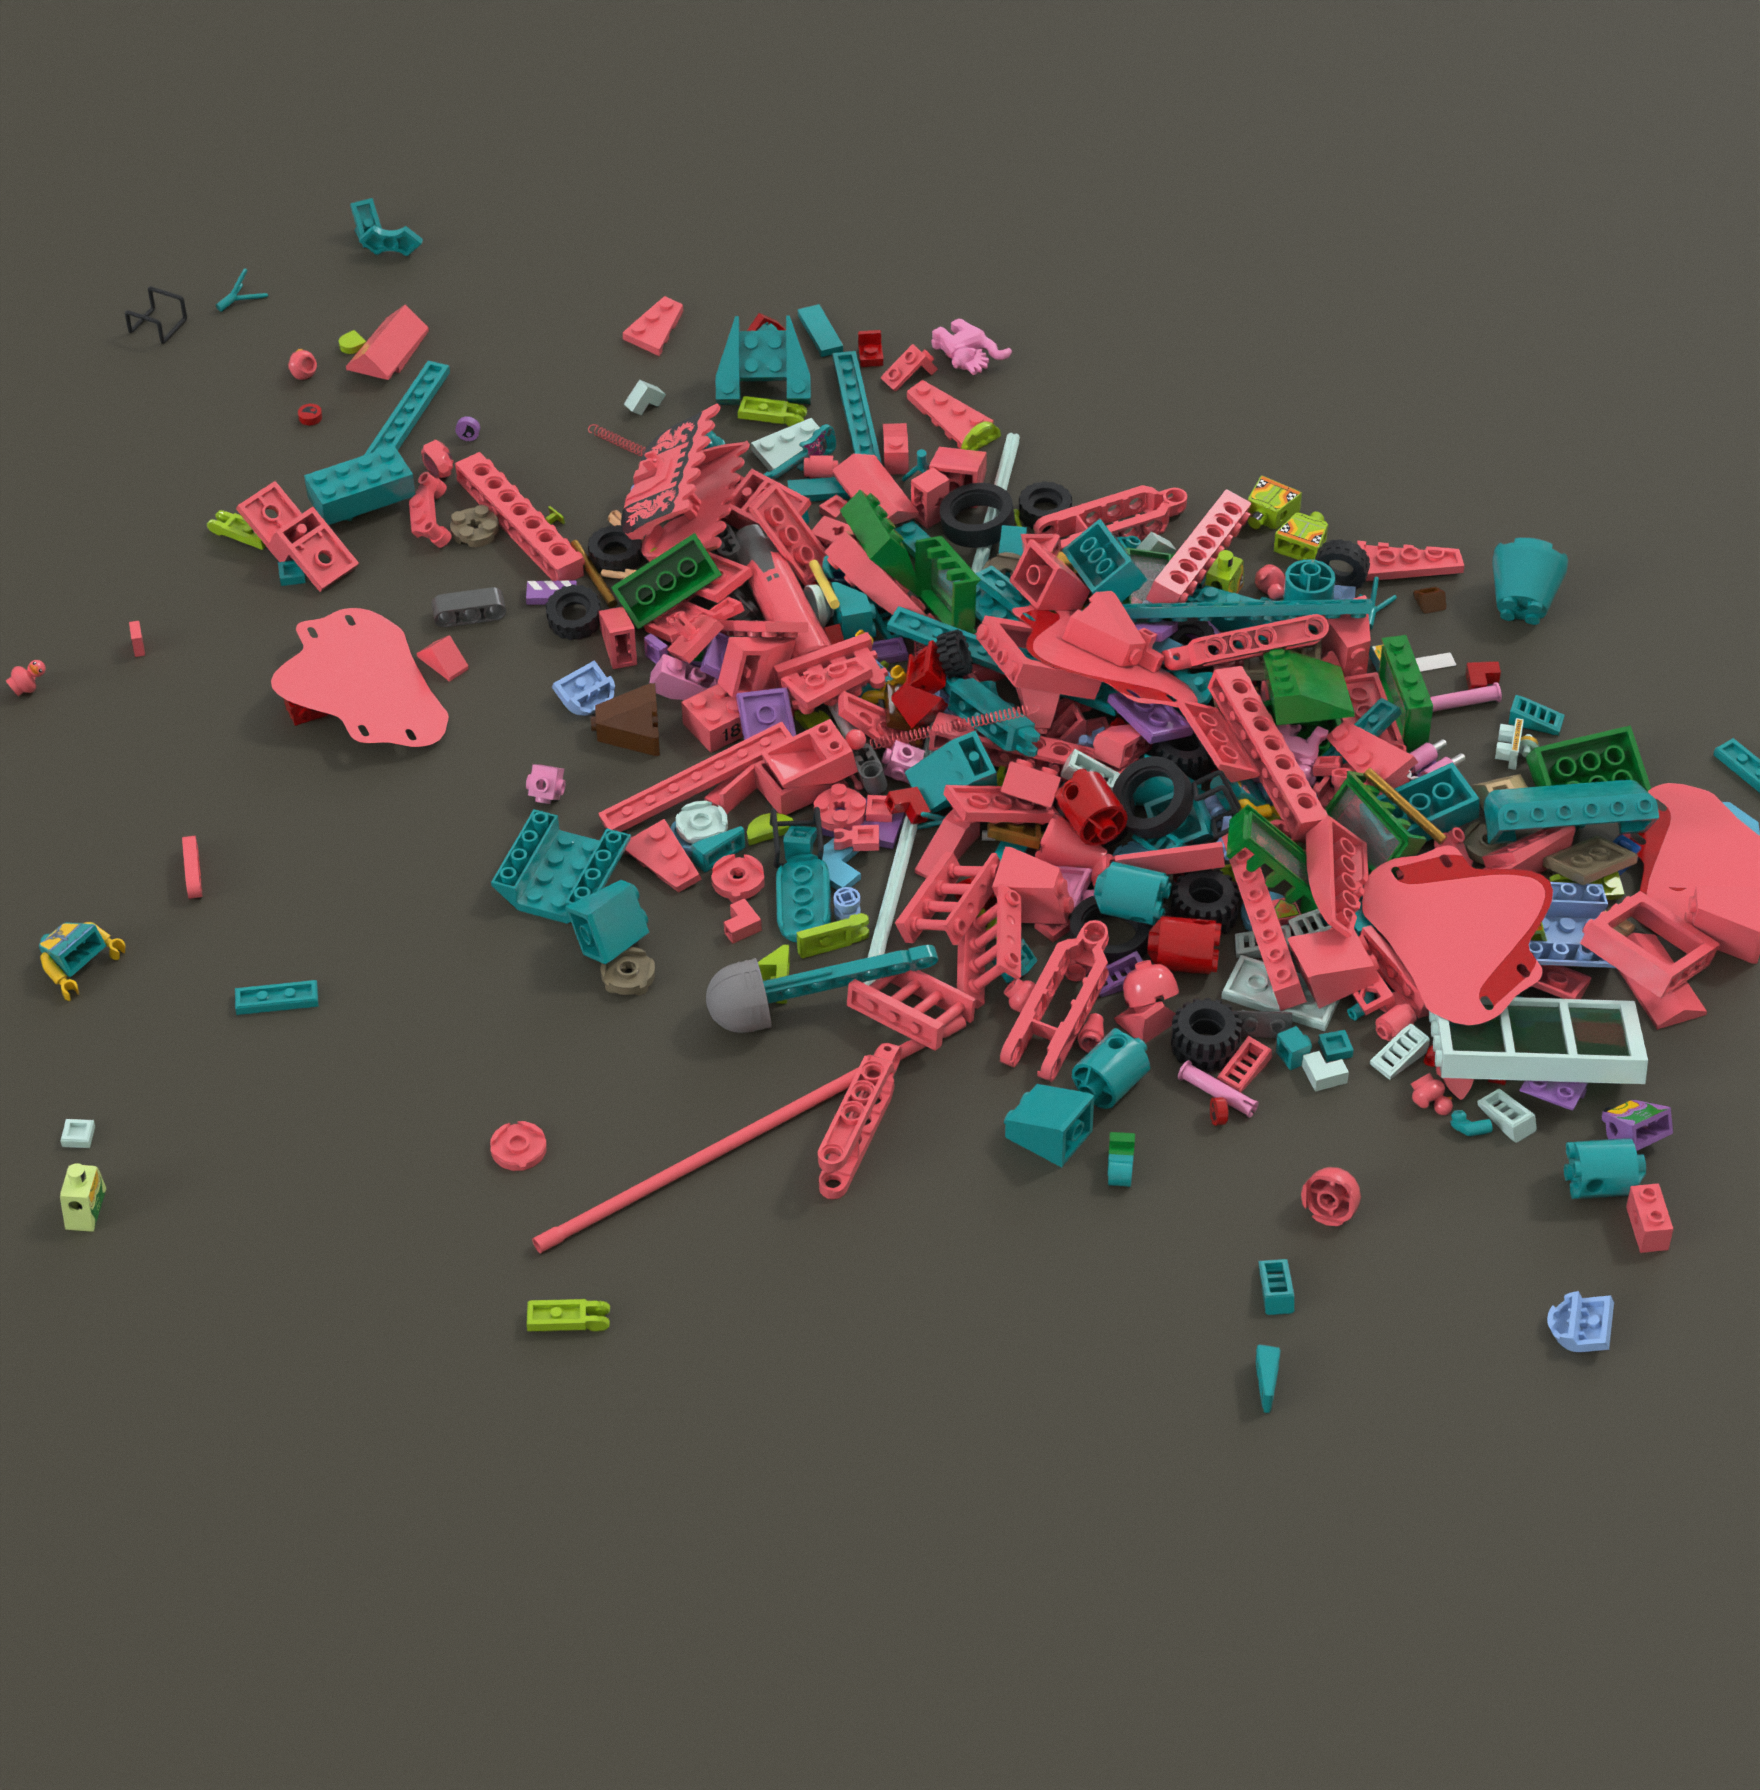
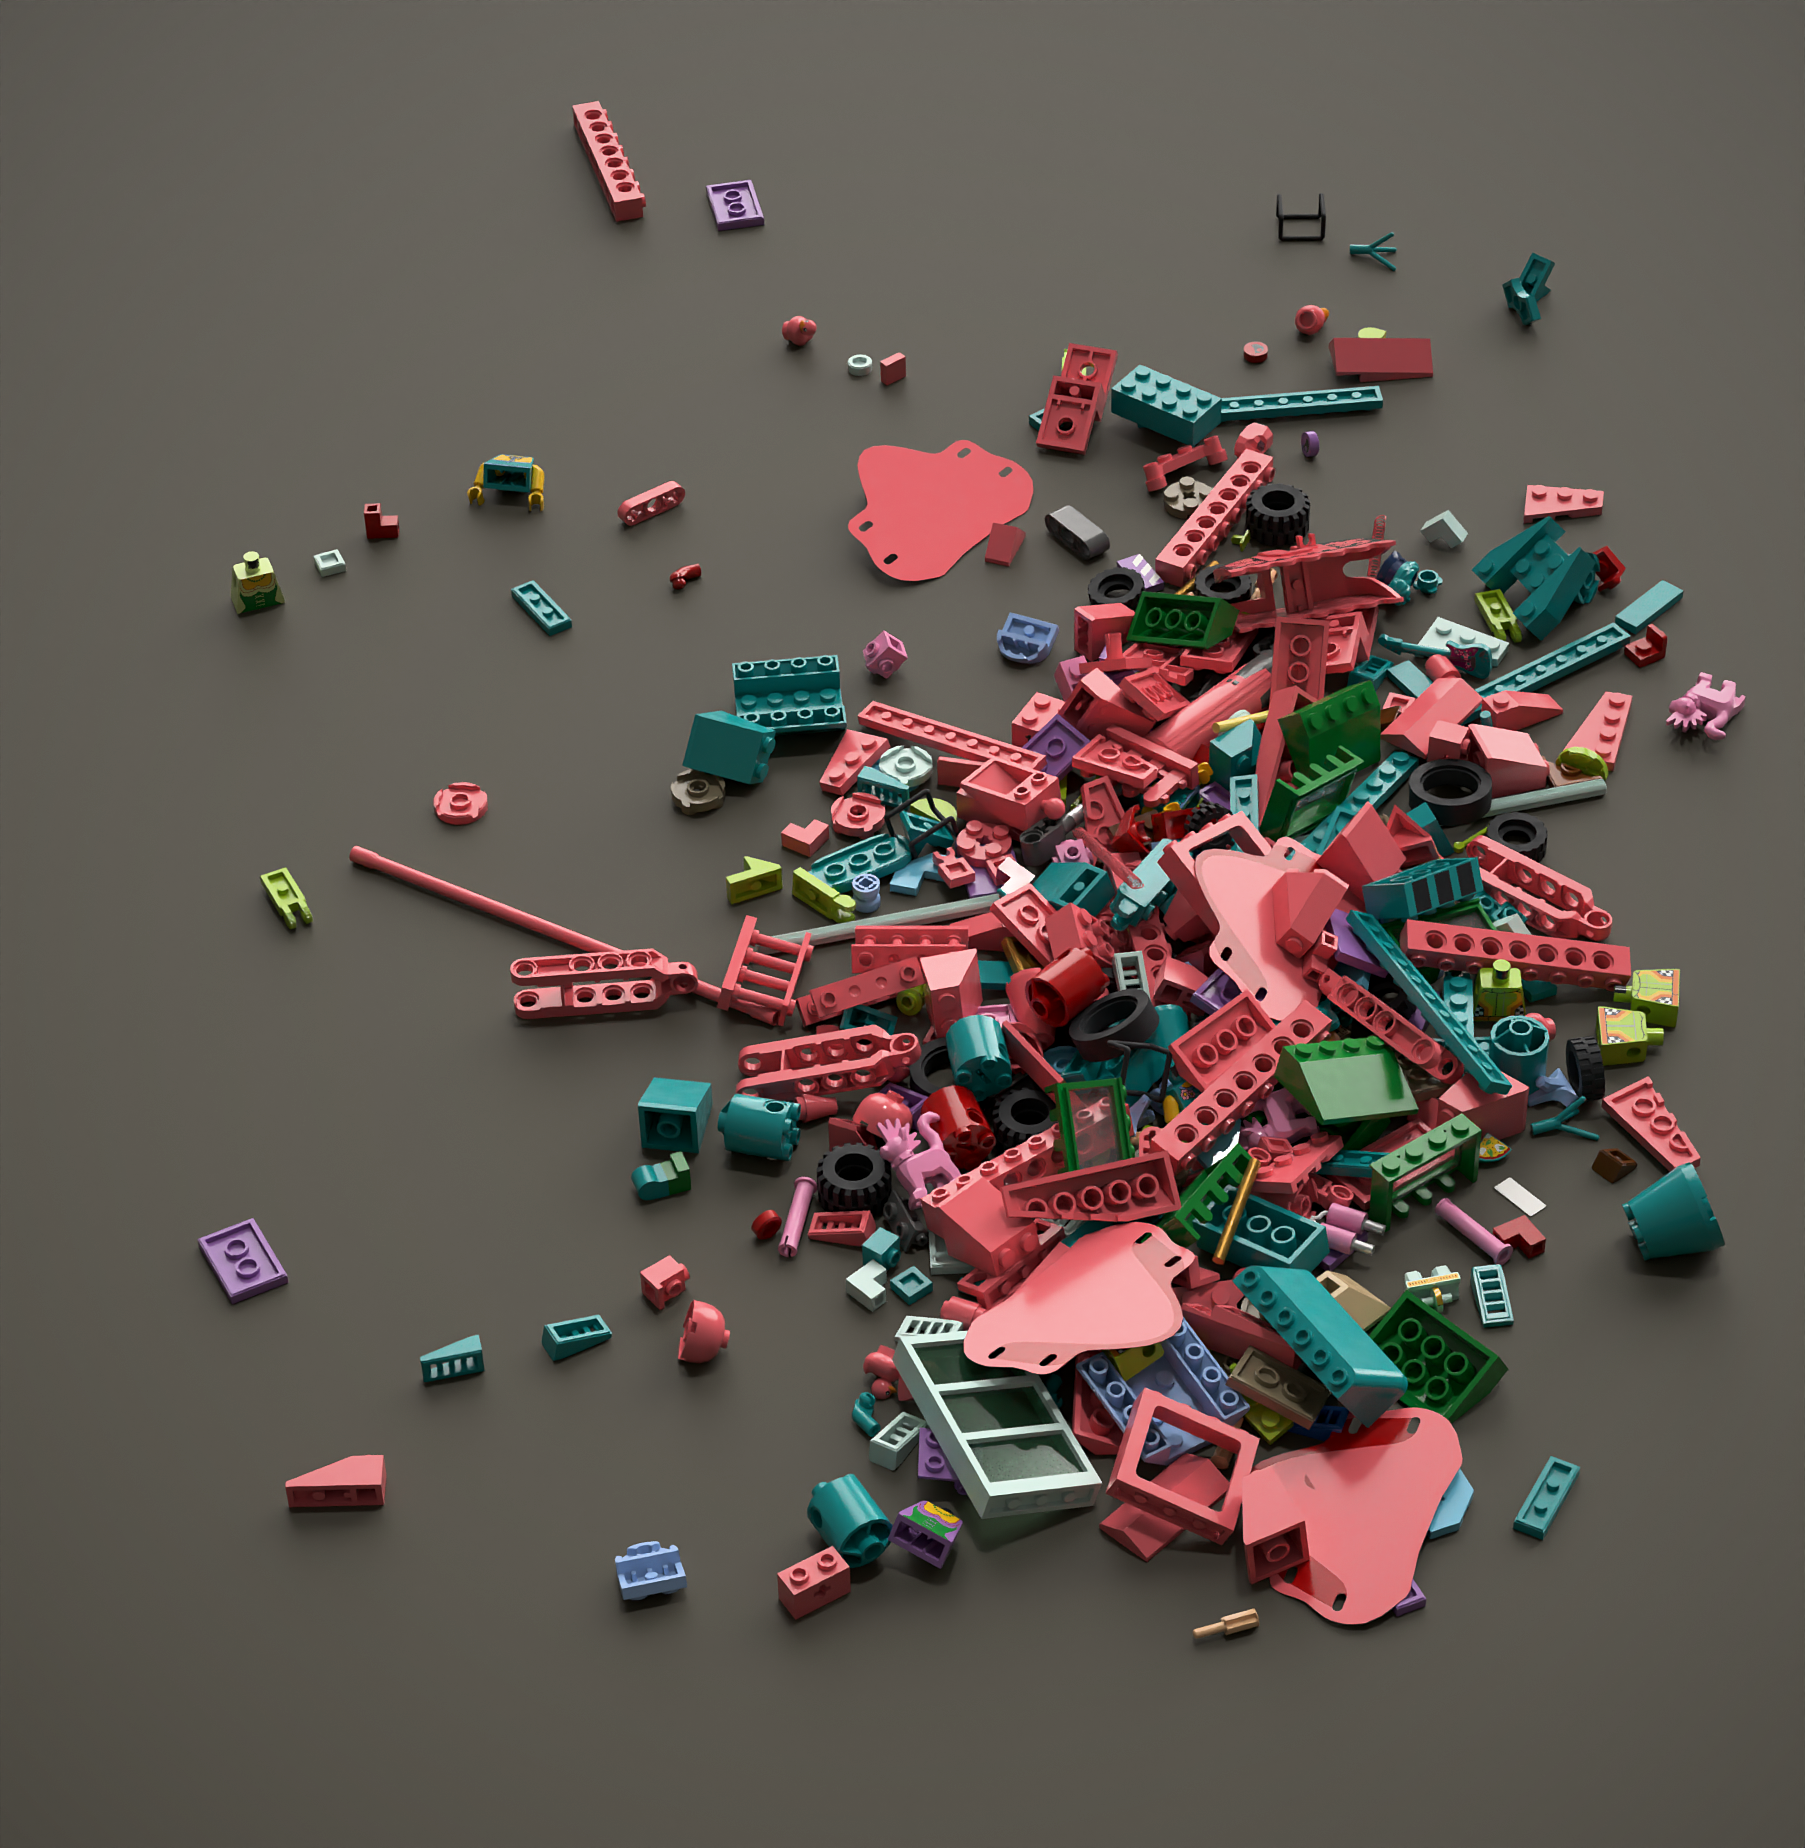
camera: 65 degrees right, 5 degrees down
(55, 1072) = (378, 525): none -> red piece
(103, 661) = (859, 365): none -> light aqua tile
(312, 882) = (679, 576): none -> red arm
(550, 479) = (1277, 514): none -> black tyre
(629, 721) = (1002, 679): reddish brown slope -> none
(740, 997) = (700, 863): piece -> none
(907, 365) = (1651, 675): coral bracket -> none
(994, 451) = (1566, 775): none -> dark orange tile
(1045, 1499) = (242, 1260): none -> medium lavender tile
(1225, 977) = (916, 1170): none -> bright pink animal
(1251, 1202) = (663, 1281): none -> coral brick
(1379, 1496) = (342, 1483): none -> coral slope

